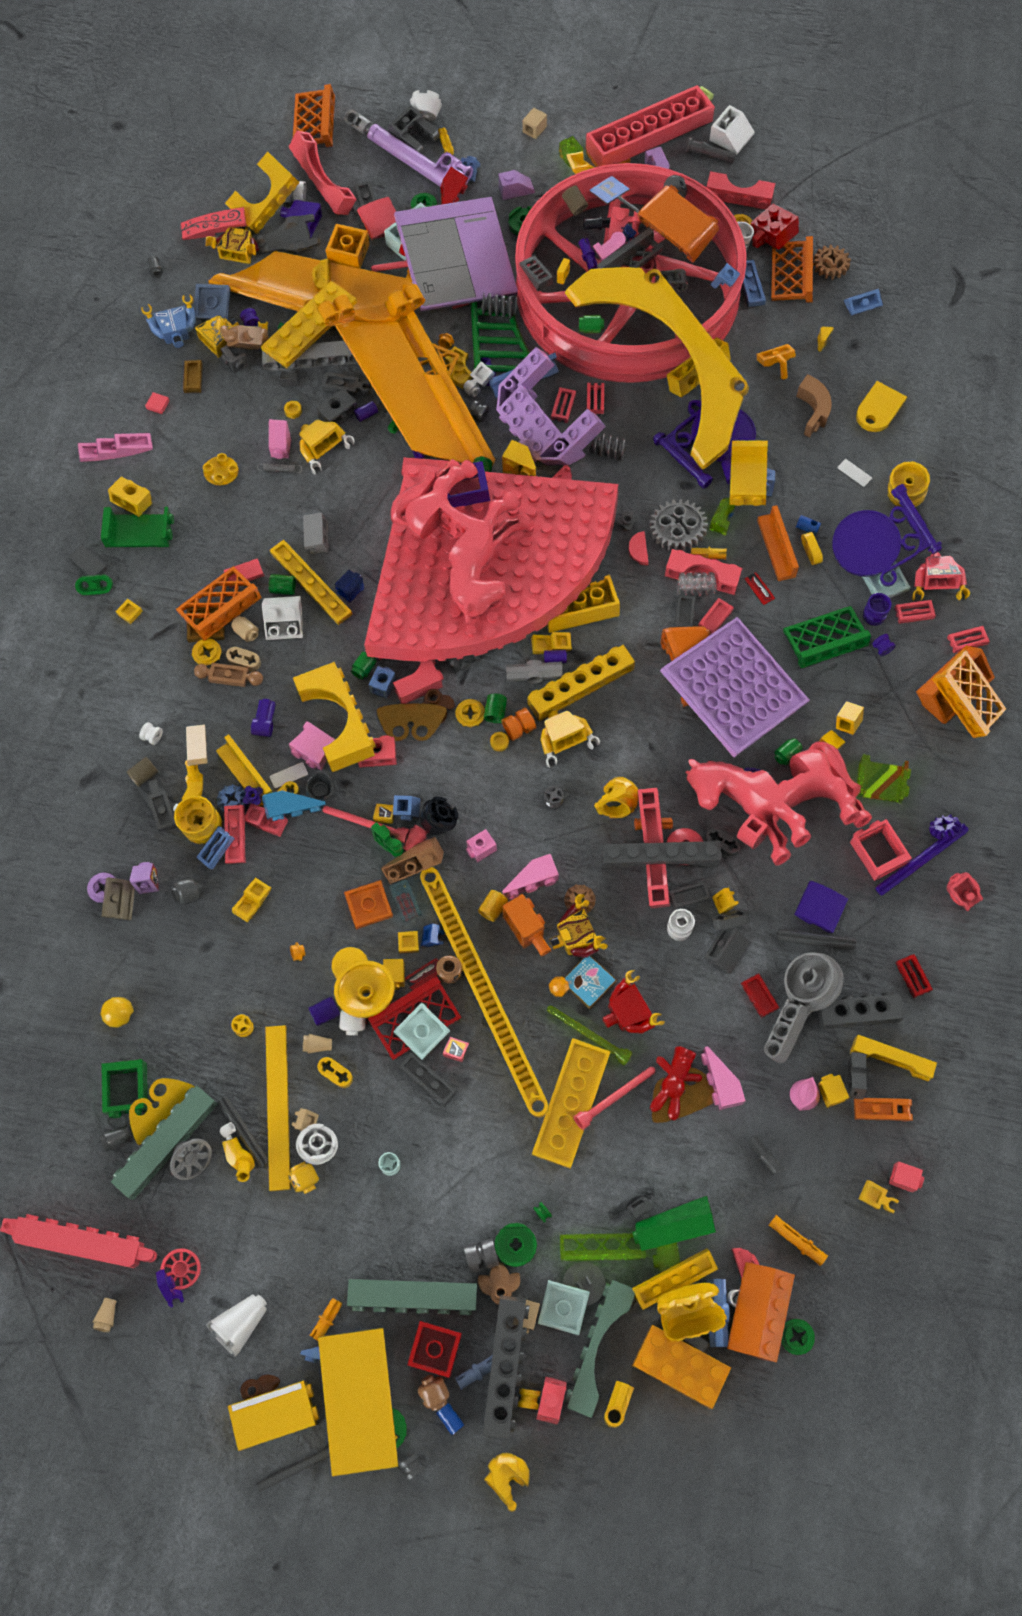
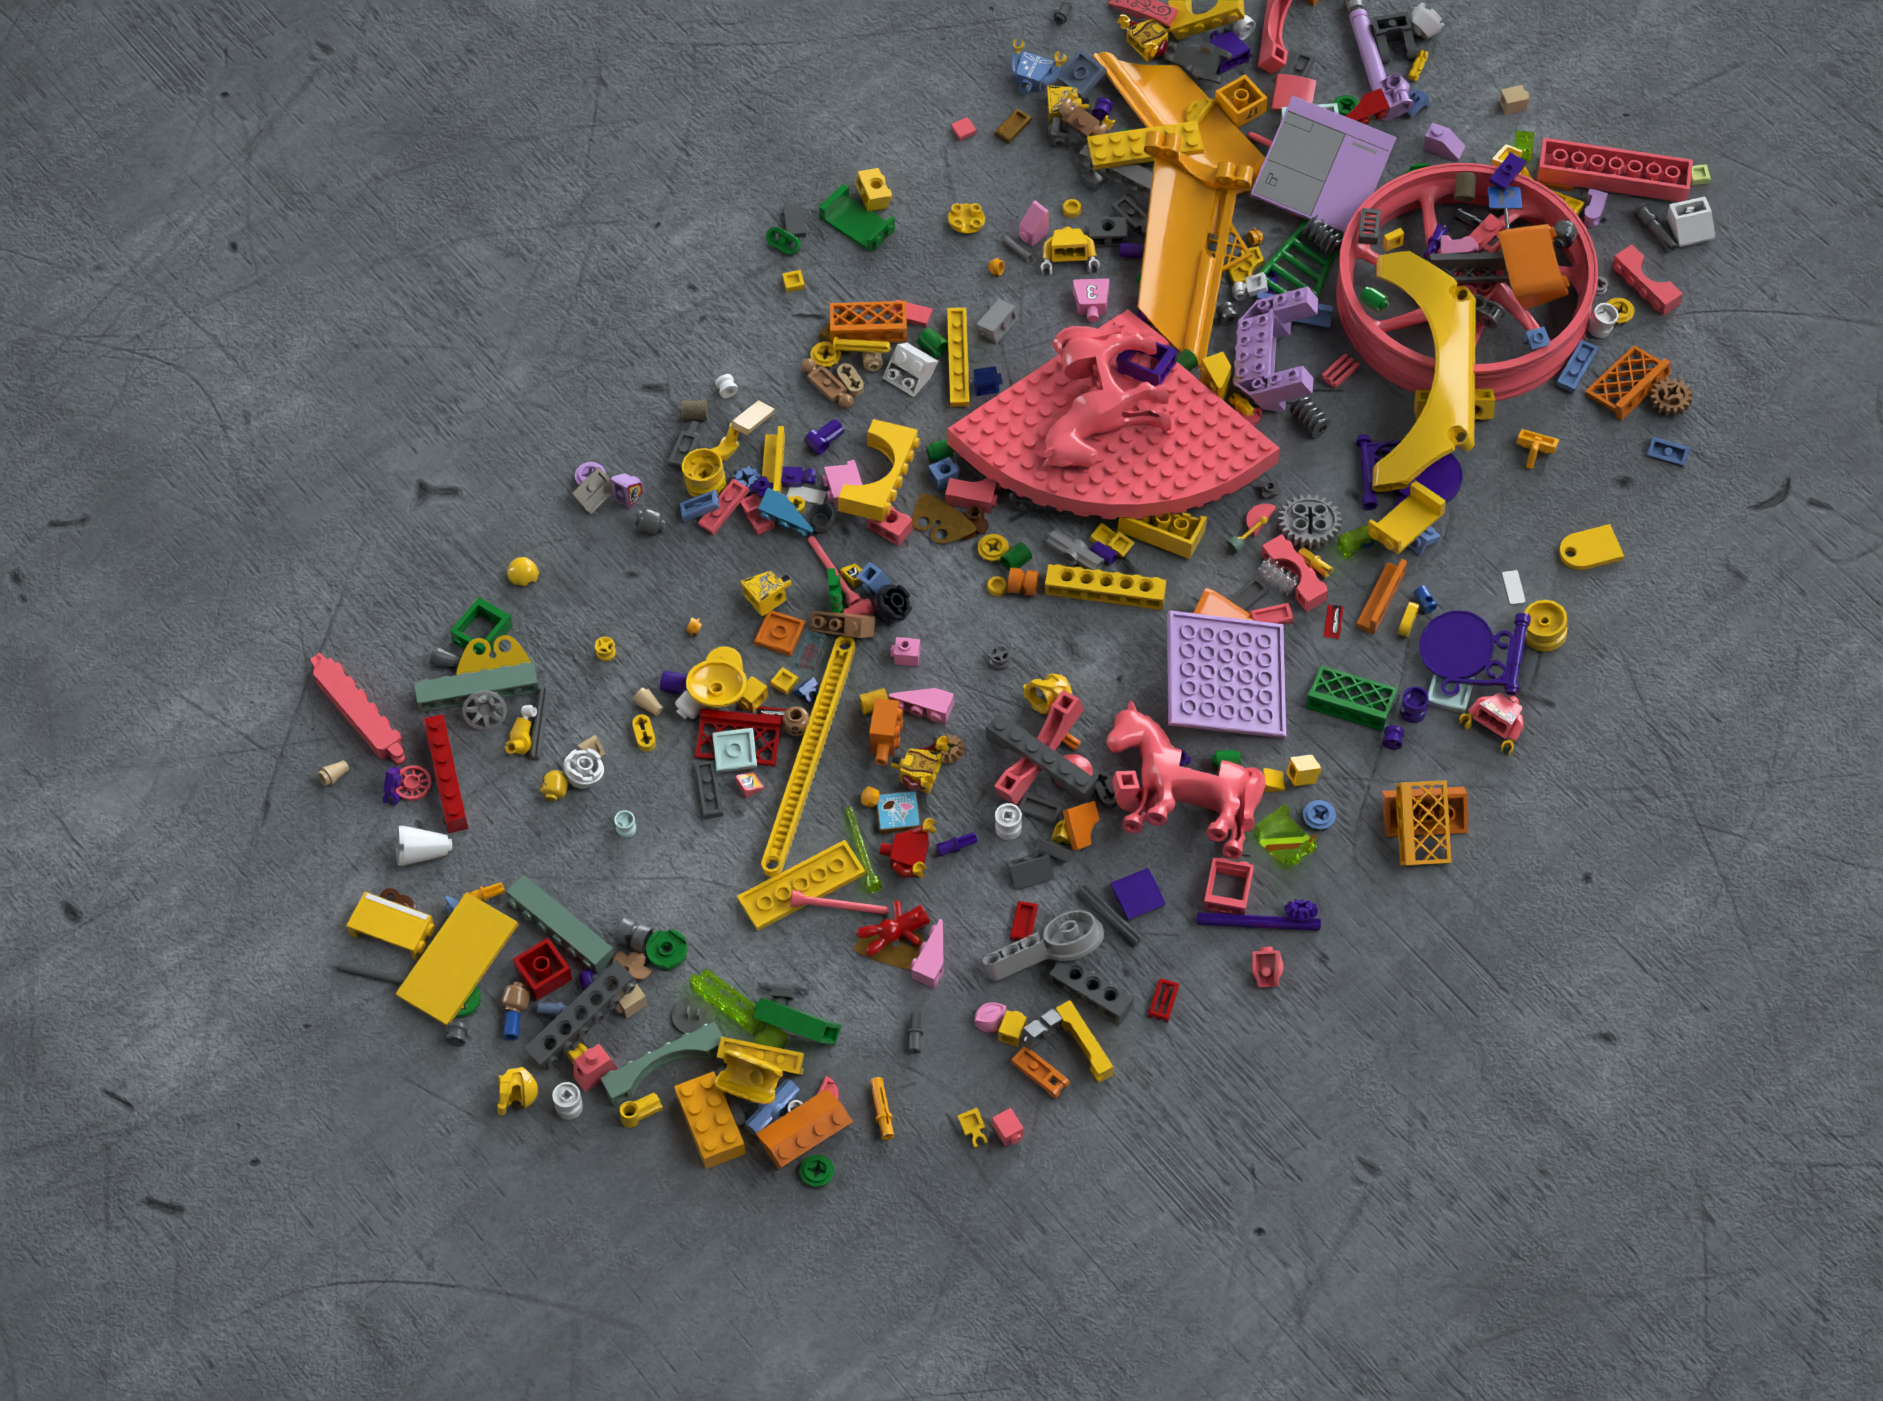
camera: 40 degrees right, 10 degrees down
(117, 447) = (897, 143): bright pink slope -> none
(204, 1240) = (446, 773): none -> red arch
(232, 626) = (860, 346): none -> yellow axle
(251, 900) = (695, 565): yellow slope -> none
(269, 768) = (796, 476): none -> dark purple plate
(277, 492) = (996, 267): none -> light orange plate
(277, 1108) = (580, 724): yellow tile -> none
(330, 879) = (765, 591): none -> yellow torso
(369, 467) = (1091, 297): none -> bright pink torso
(479, 1328) = (586, 978): none -> dark purple arm
(542, 1212) = (707, 942): green bush -> none
(553, 471) = (1241, 404): none -> yellow axle
(556, 1449) = (567, 1100): none -> white wheel
(560, 416) = (1310, 360): coral tile -> none
(563, 732) = (1052, 613): yellow torso -> none
(563, 1307) = (661, 1016): light aqua tile -> none
(595, 169) = (1507, 171): none -> dark purple plate
(628, 231) = (1484, 244): clear blue plate -> none
(642, 579) = (1237, 543): none -> hinge
(656, 972) = (956, 843): none -> dark purple axle
(733, 884) = (1080, 823): none -> orange tile
(774, 227) = (1643, 331): red hinge -> none
(818, 397) = (1531, 516): medium nougat arch -> none
(824, 336) = (1597, 456): yellow slope -> none
(895, 740) = (1319, 807): none -> medium blue gear
(930, 613) = (1448, 735): coral tile -> none
(983, 635) = (1474, 790): coral tile -> none

